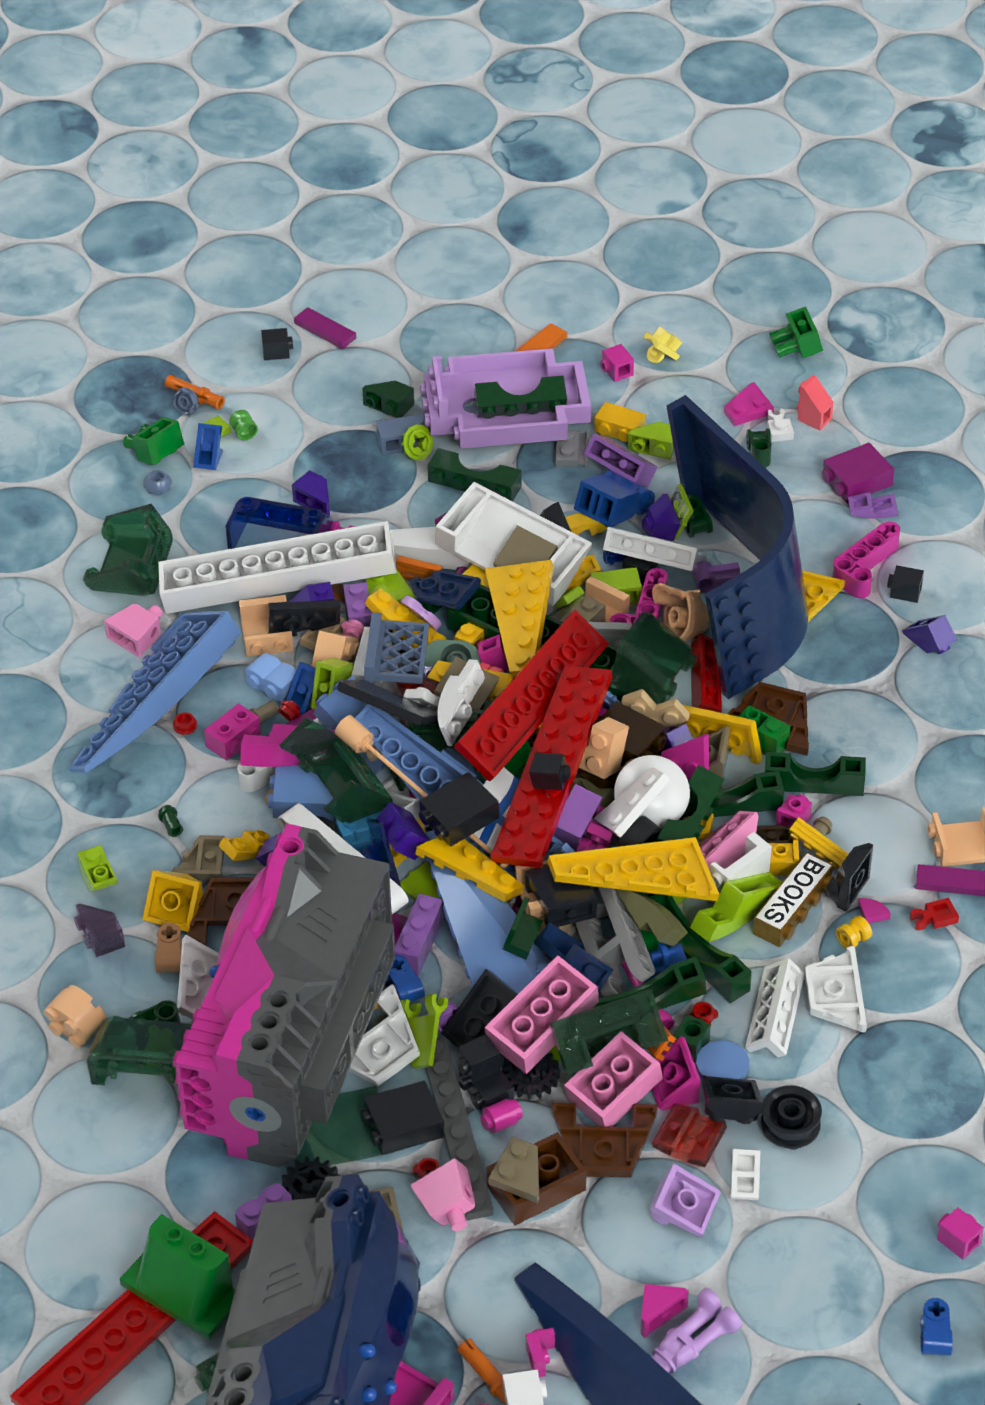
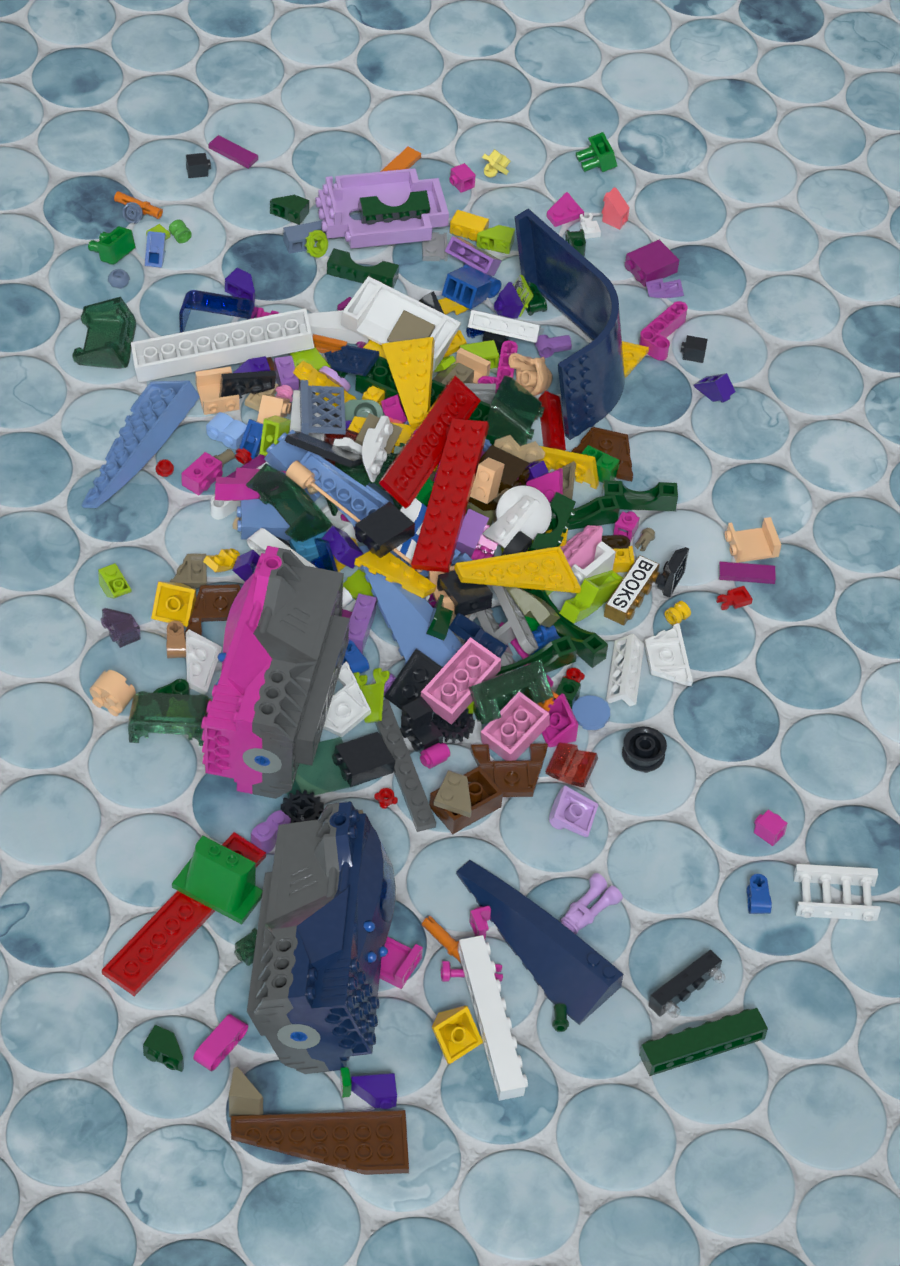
camera: 10 degrees left, 5 degrees up
(134, 628) = (116, 394): bright pink torso -> none
(168, 816) = (161, 539): dark green pin -> none
(447, 1194) = (402, 813): bright pink torso -> none
(549, 771) = (450, 500): black brick -> none
(661, 1305) = (563, 886): dark pink slope -> none
(731, 1099) = (601, 738): black slope -> none
(745, 1174) = (614, 791): white slope -> none
(818, 842) = (646, 547): yellow piece -> none
(873, 910) = (689, 596): dark pink tile -> none

